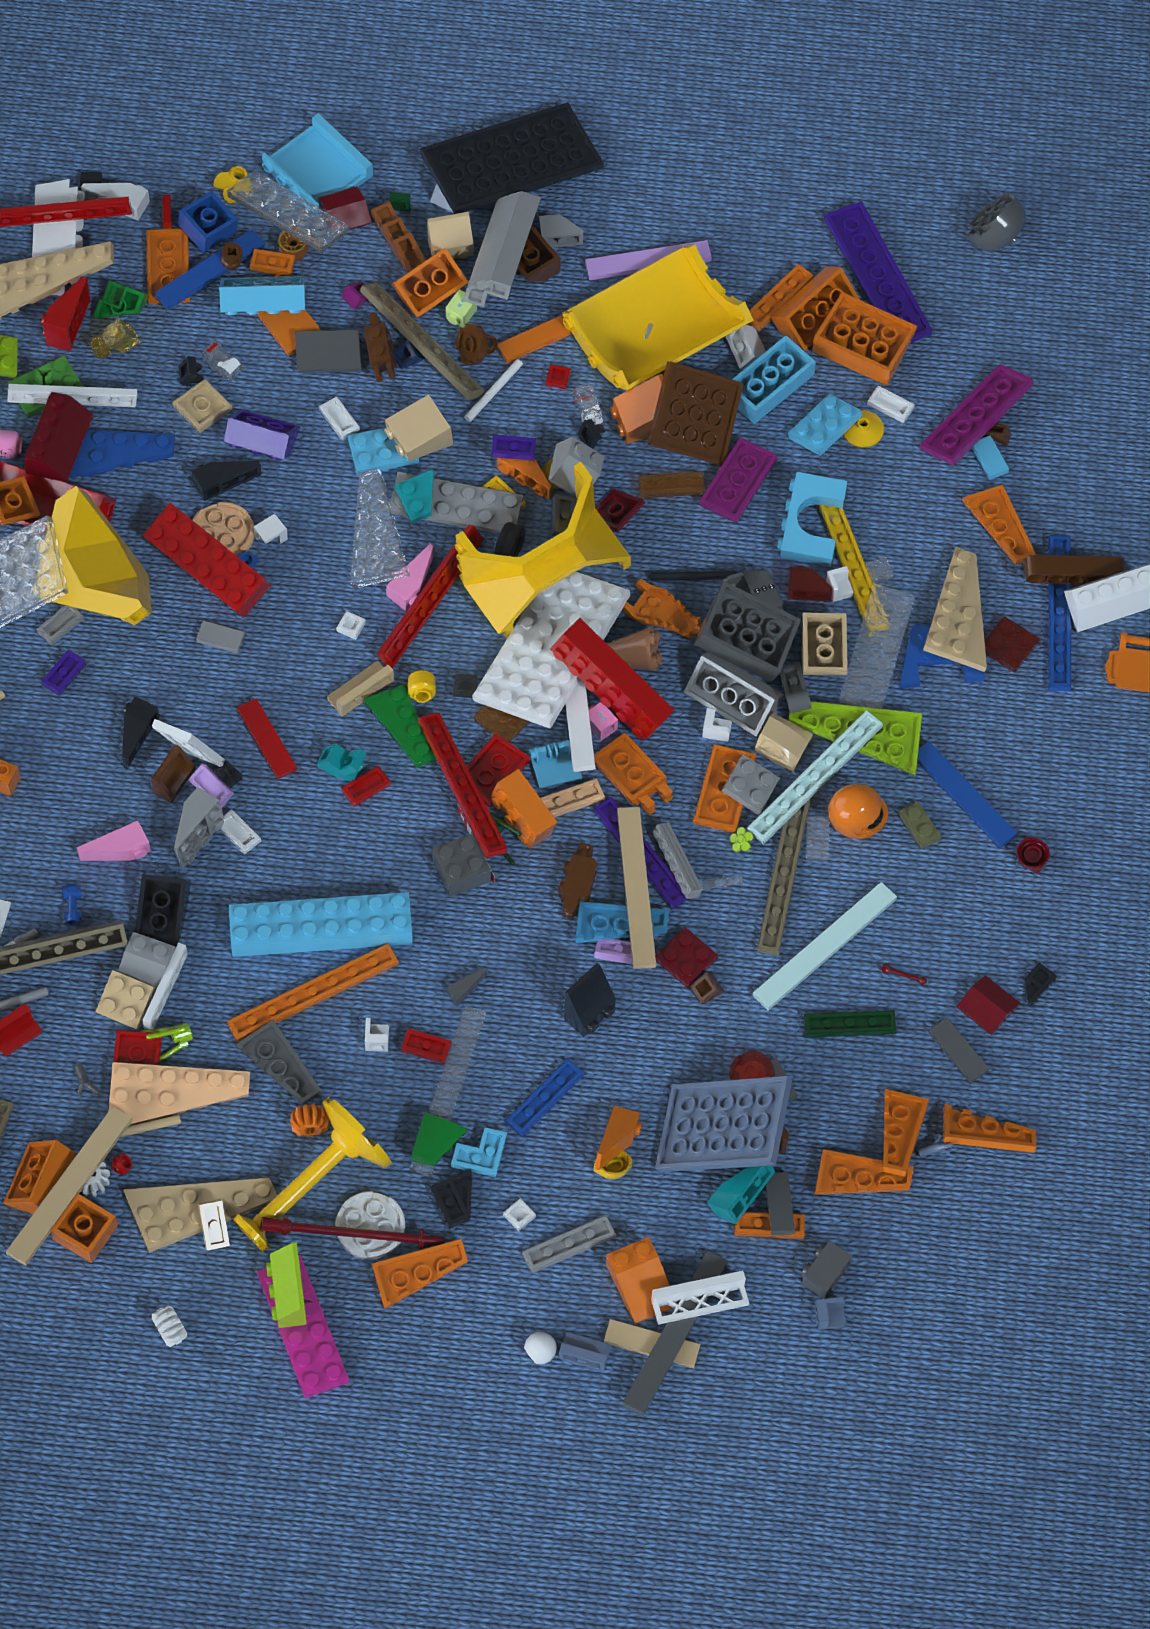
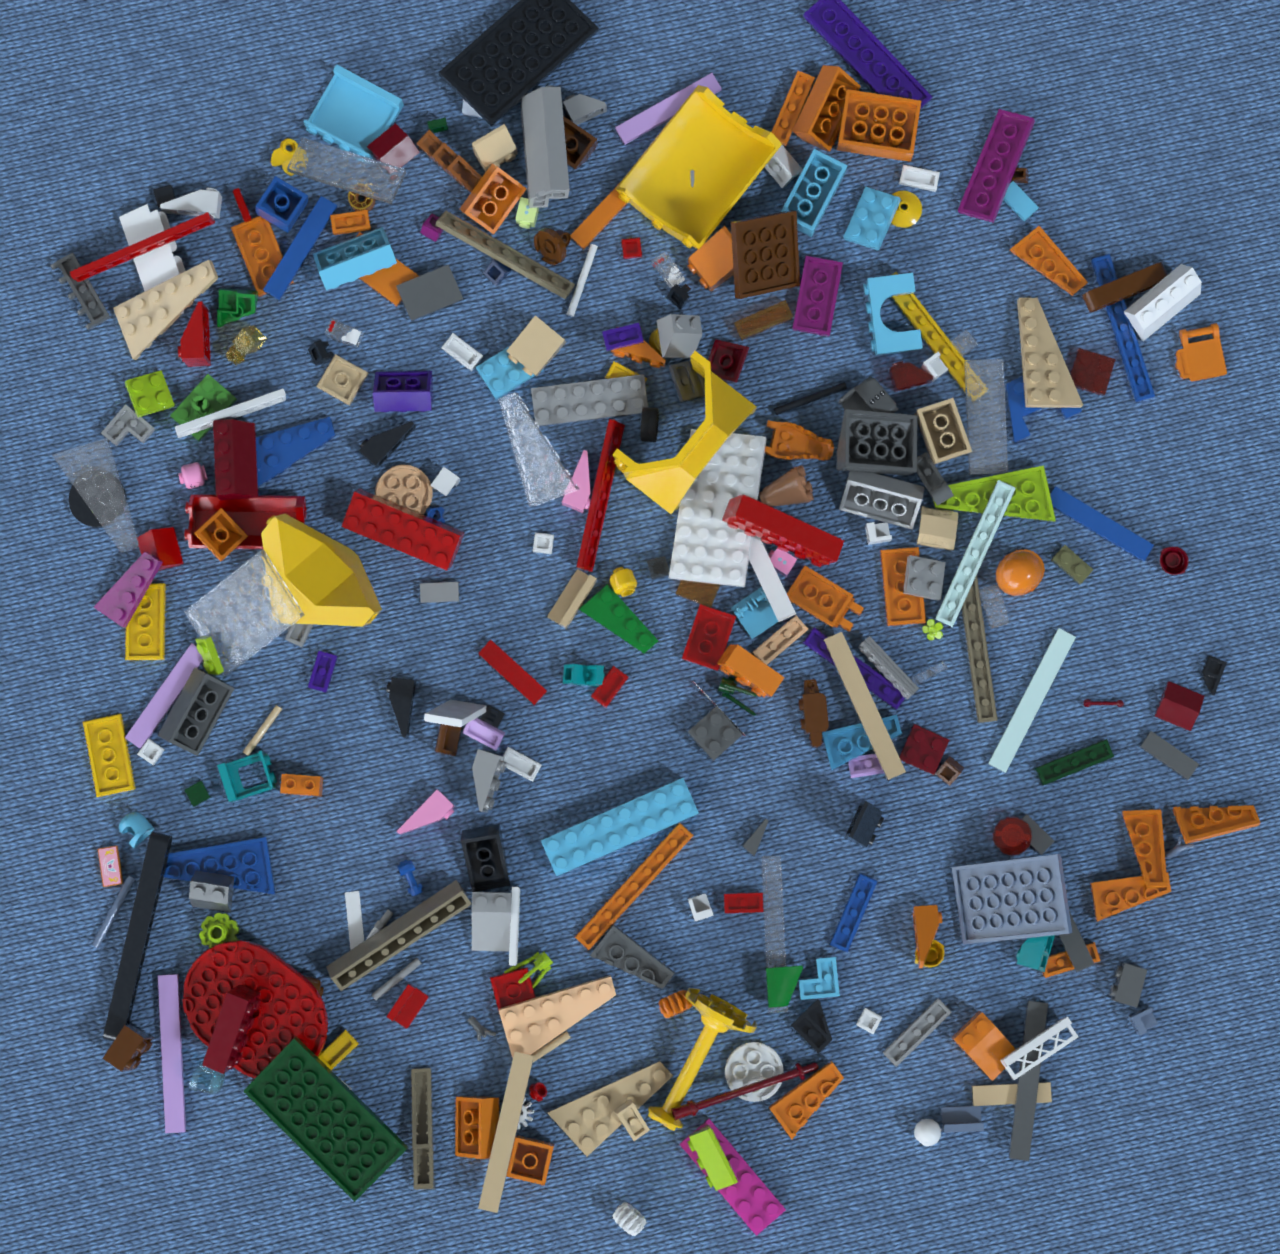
camera: 15 degrees left, 20 degrees up
(125, 999) = (486, 949): tan plate -> none
(231, 261) = (313, 235): reddish brown wheel -> none
(380, 348) = (473, 276): reddish brown hinge -> none
(417, 496) = (556, 407): teal wing -> none
(462, 785) = (691, 663): red tile -> none

